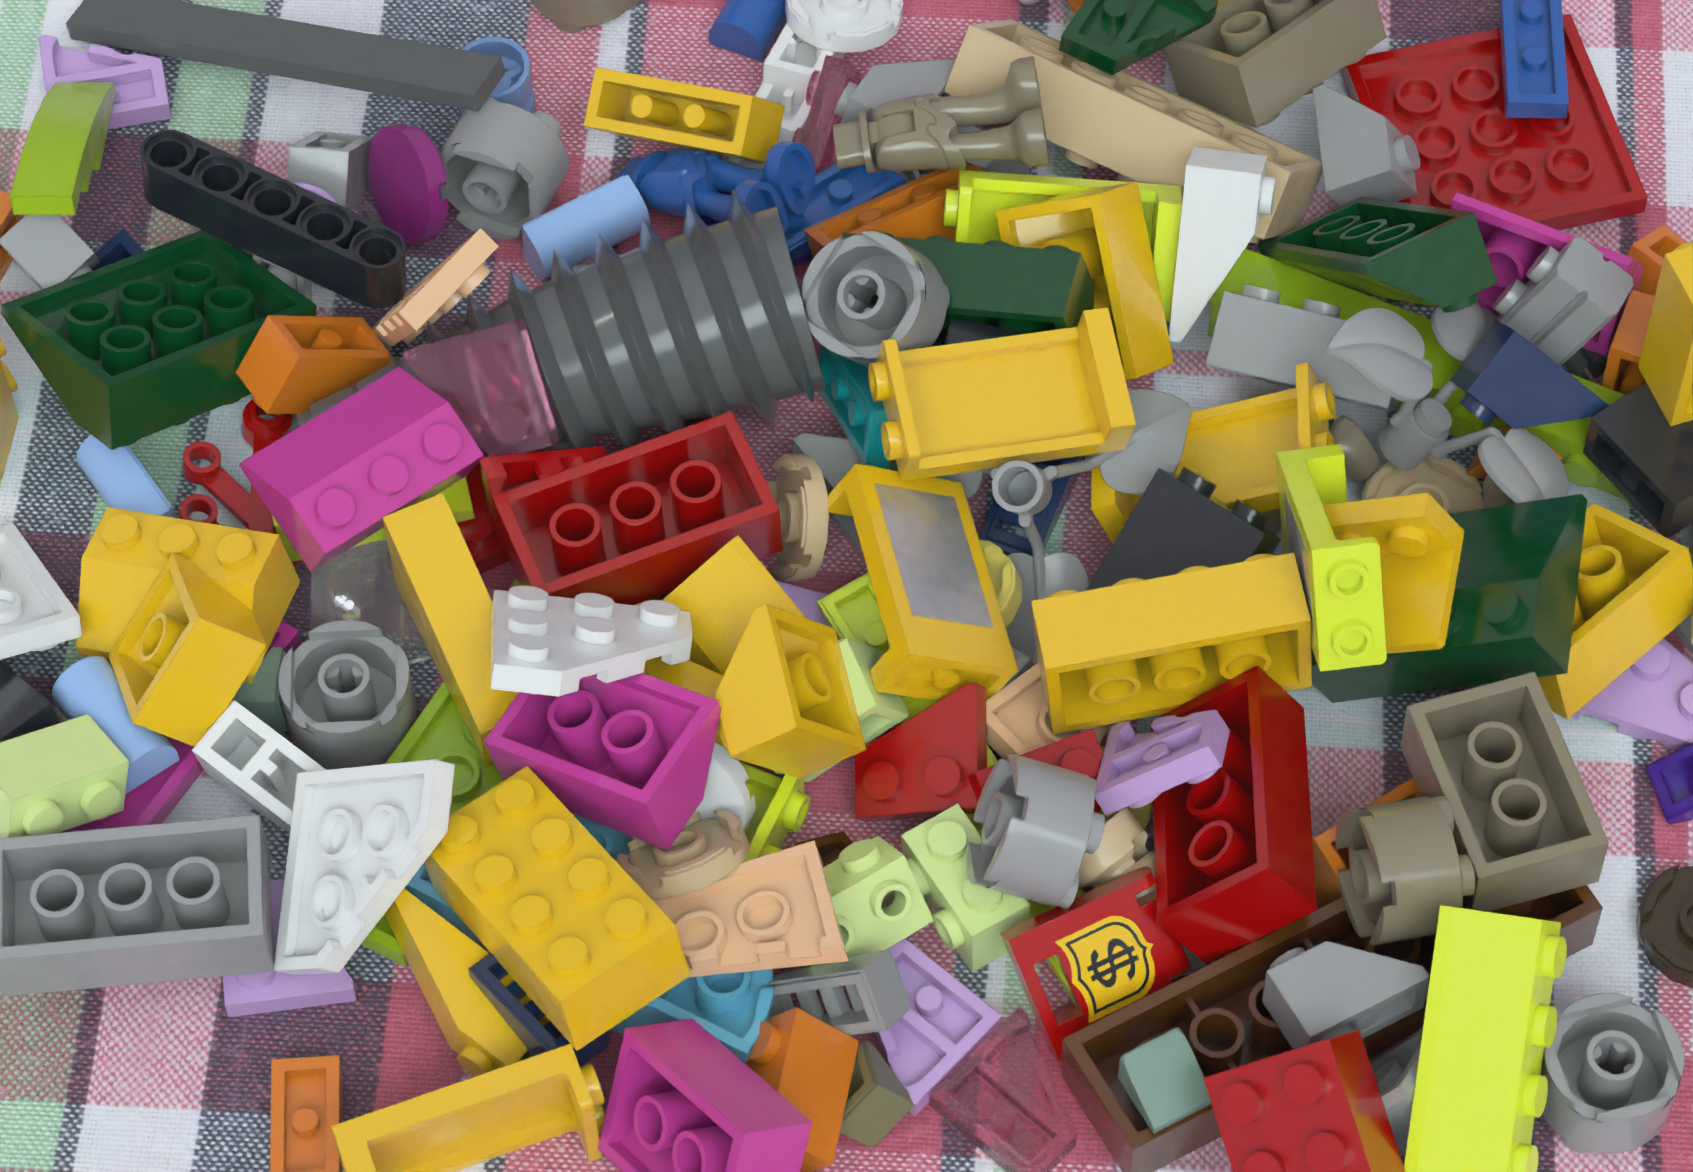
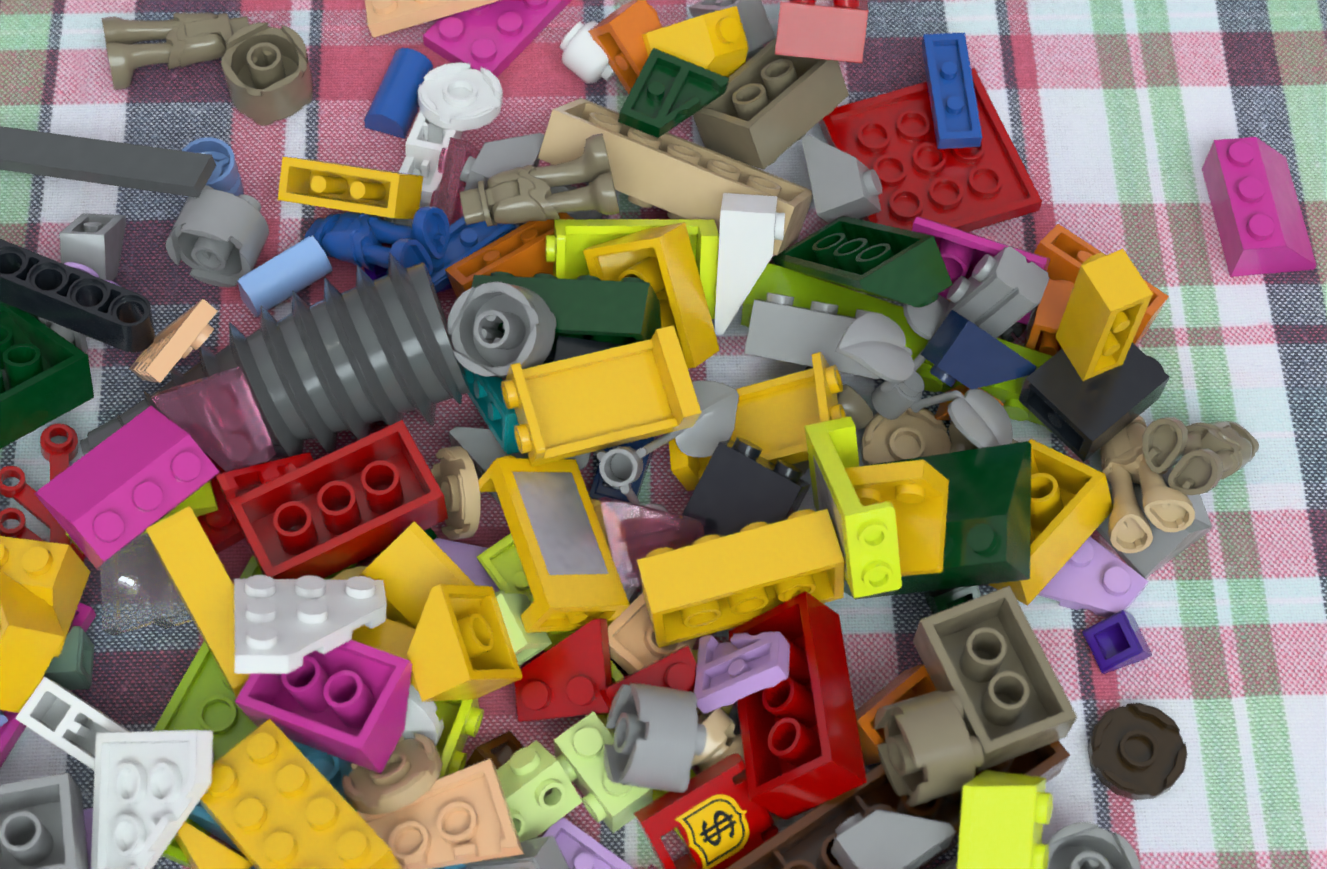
camera: 10 degrees left, 5 degrees up
(308, 359) = (86, 398): orange brick -> none
(347, 695) = (108, 655): light grey brick -> none
(406, 182) = (150, 252): magenta tile -> none
(1034, 571) = (638, 530): none -> clear pink wing

